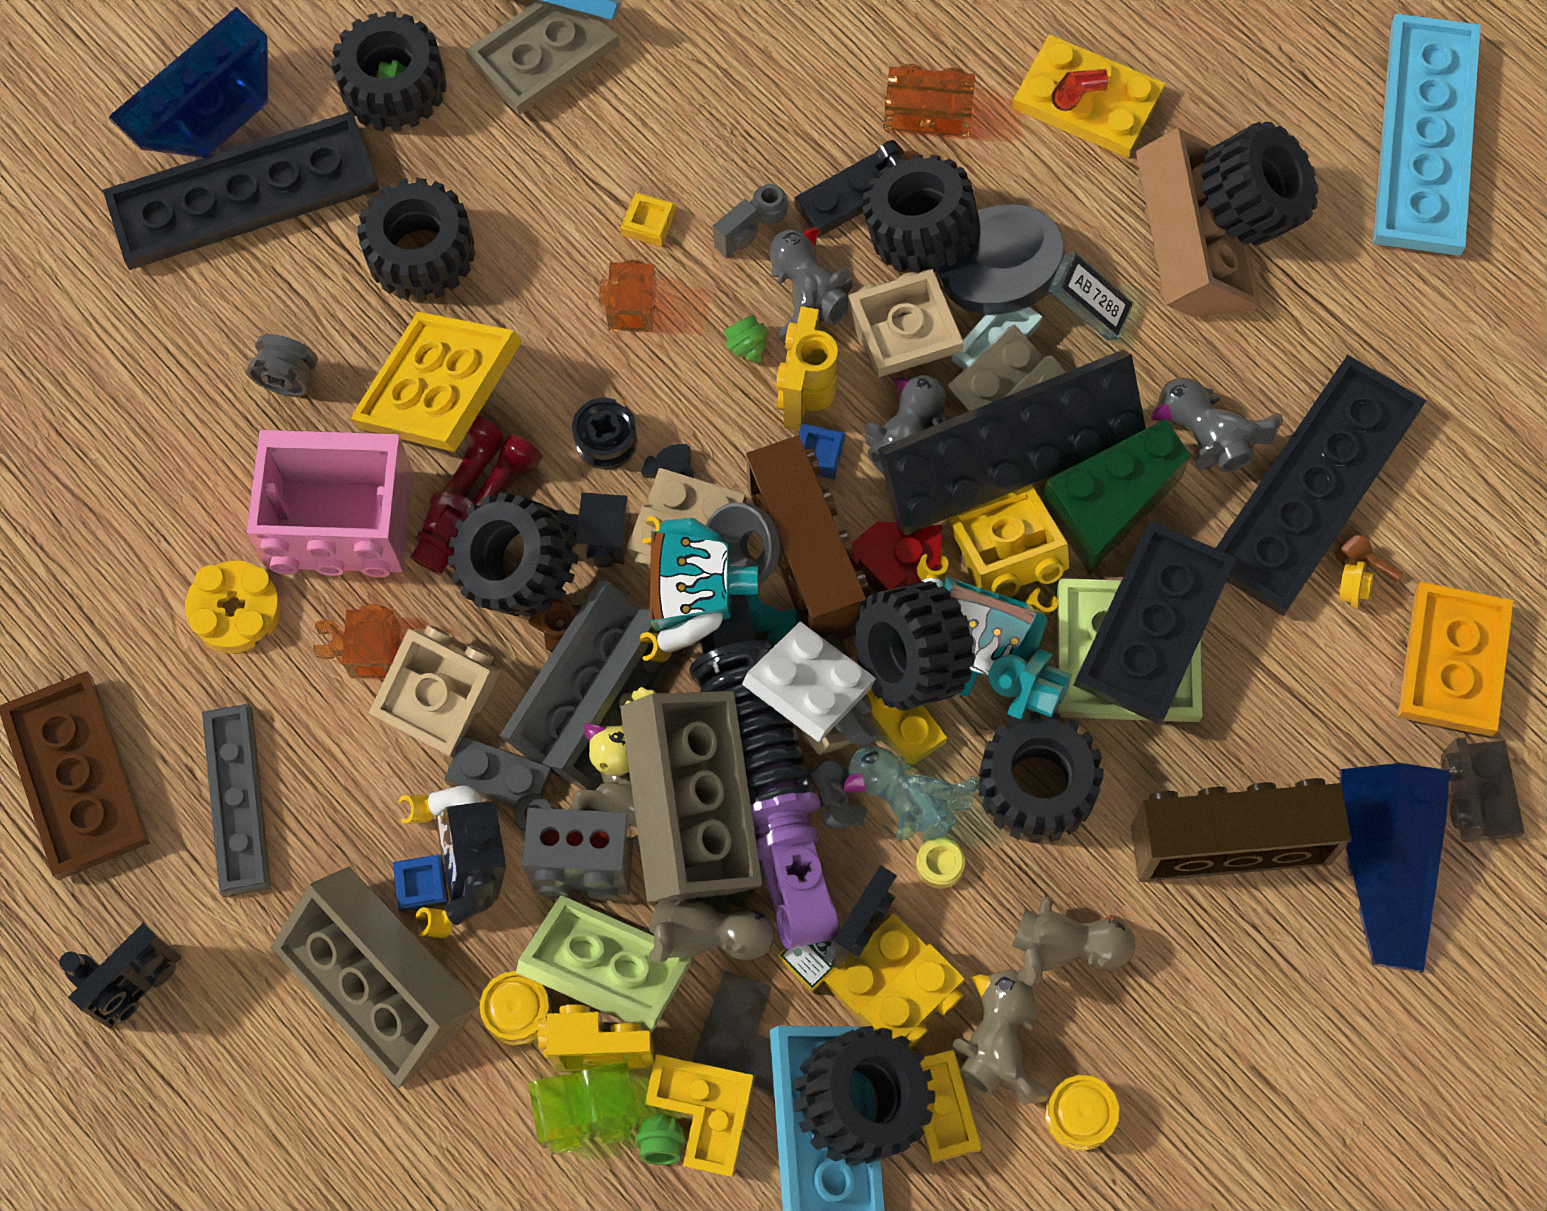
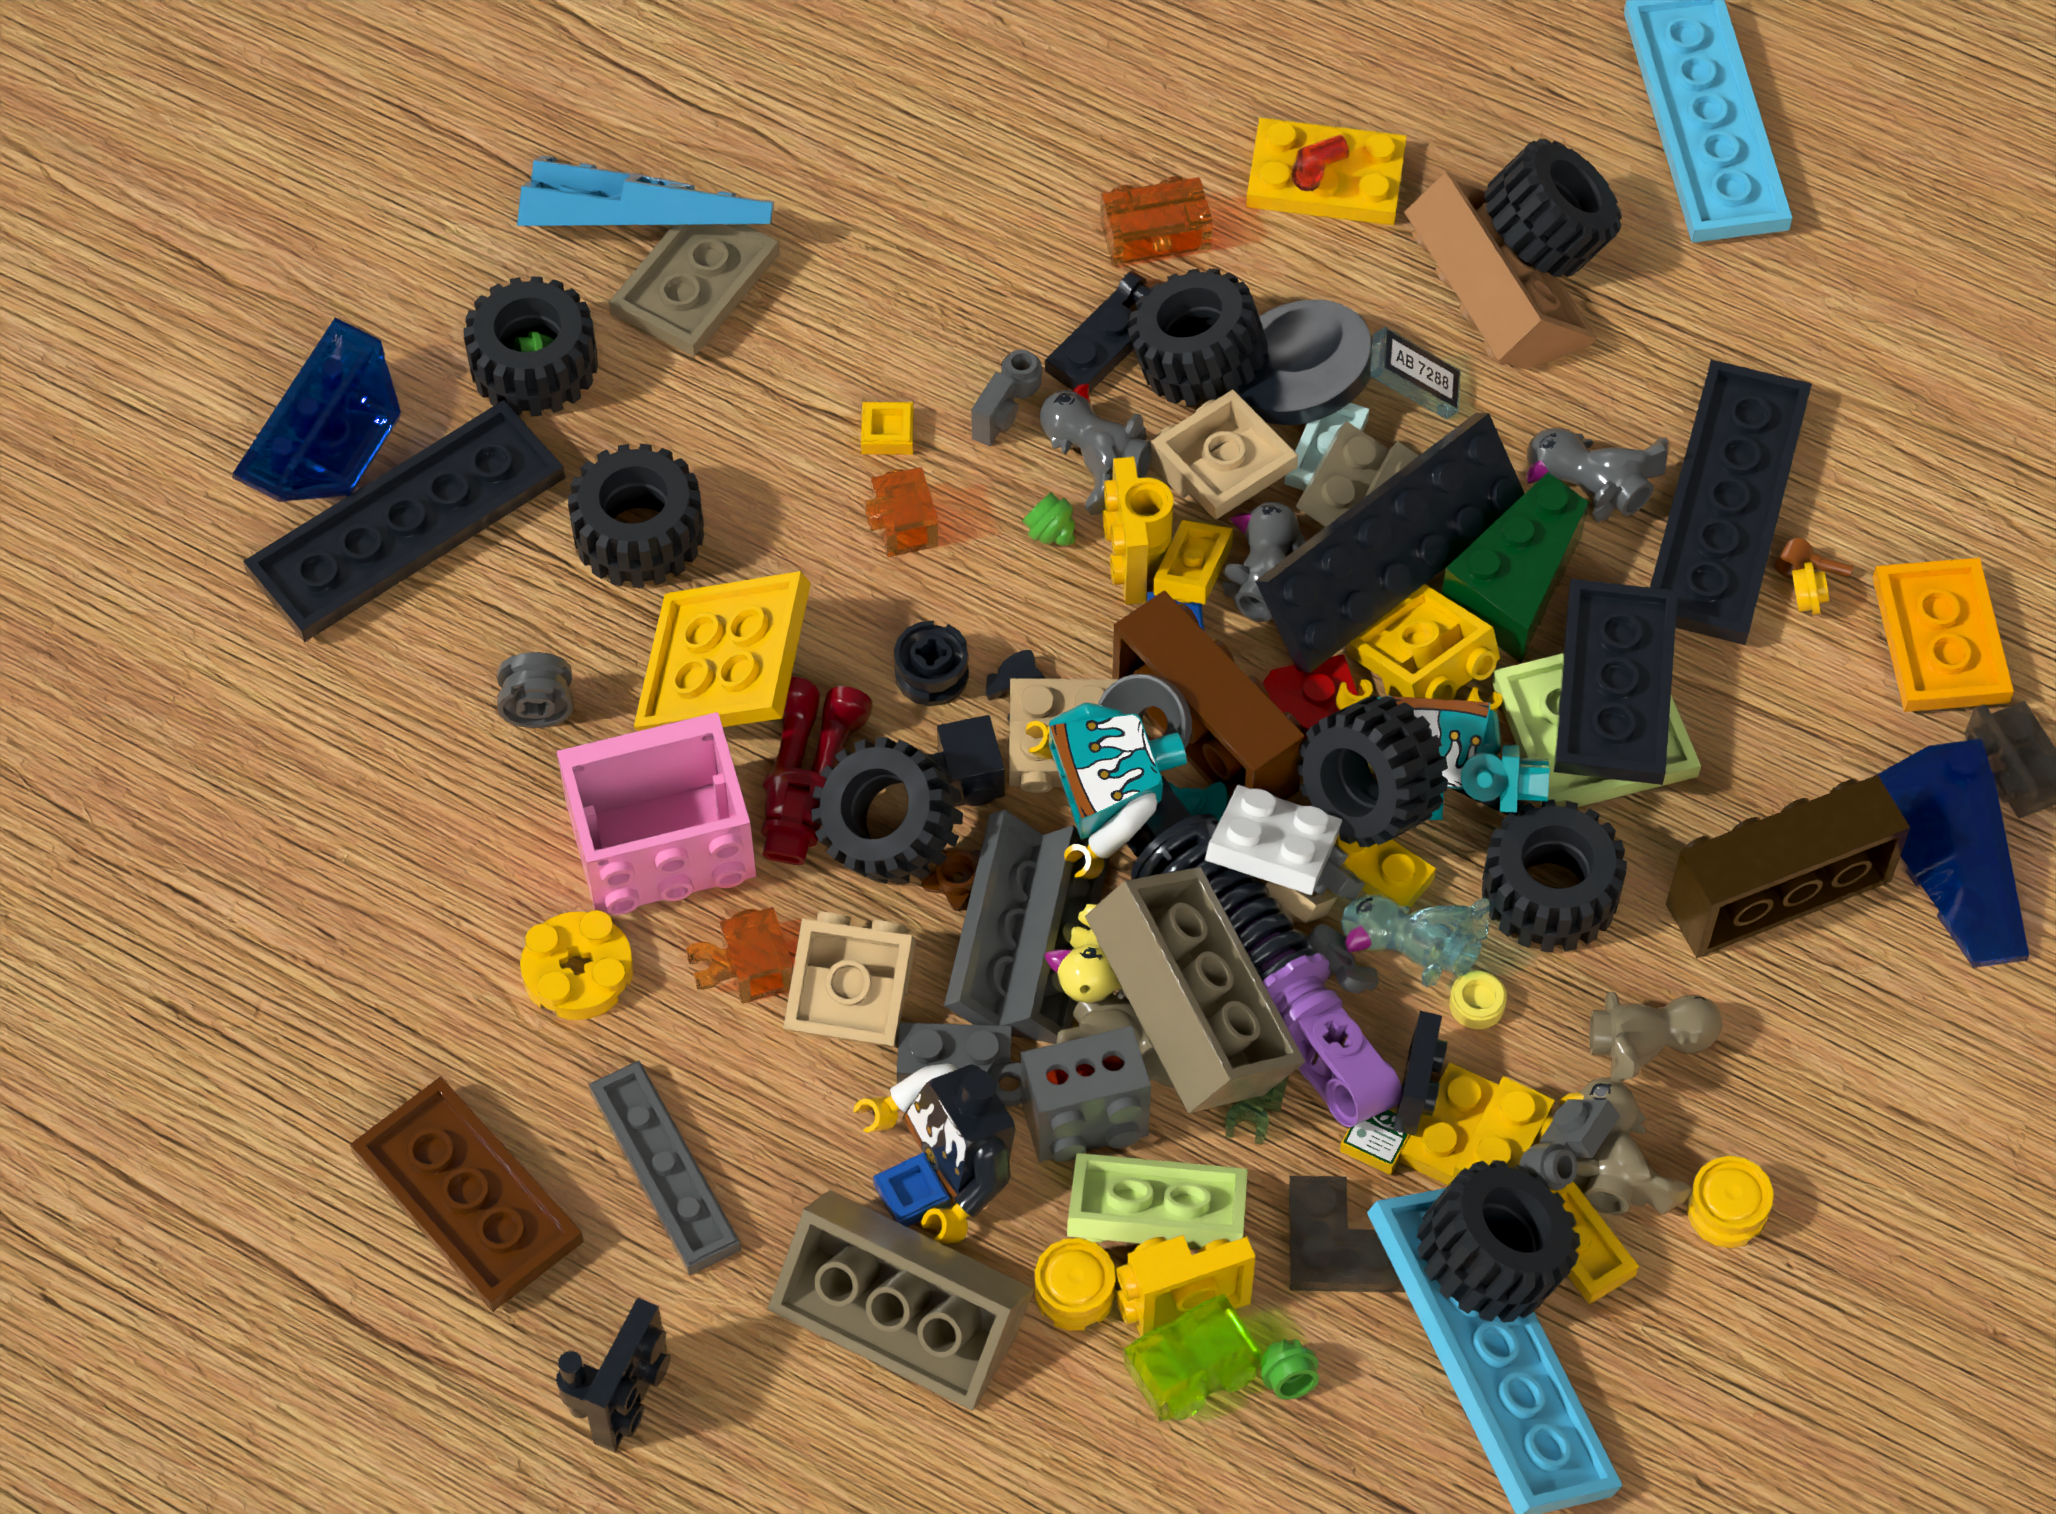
camera: 20 degrees left, 10 degrees down
(694, 927) = (1244, 1135): dark tan animal -> none
(718, 1104) = (1334, 1306): yellow plate -> none
(846, 409) = (1193, 561): none -> yellow plate
(965, 1018) = (1574, 1133): none -> dark grey plate

